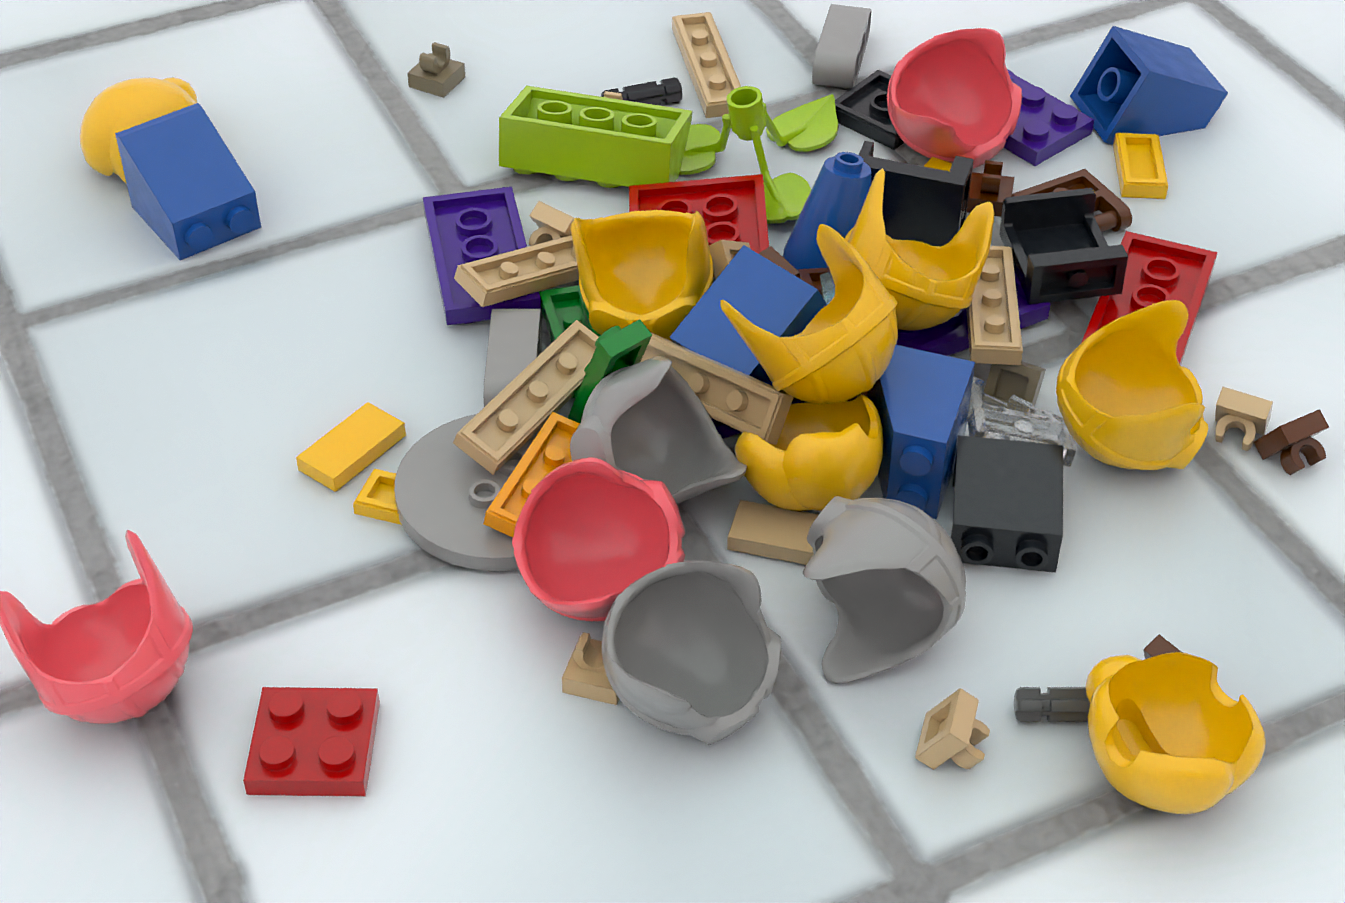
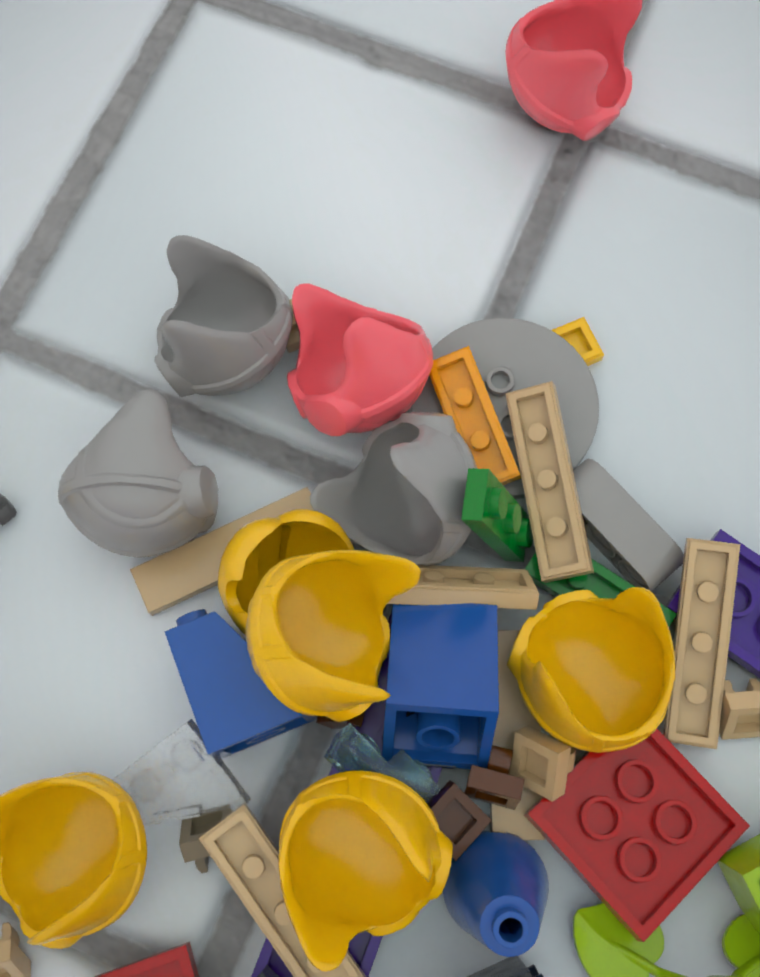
camera: 140 degrees right, 30 degrees up
(312, 742) = (416, 150): red plate -> none
(351, 446) = (643, 363): yellow tile -> none
(951, 732) = (32, 436): tan tile -> none
(1008, 503) = (122, 682): black panel -> none

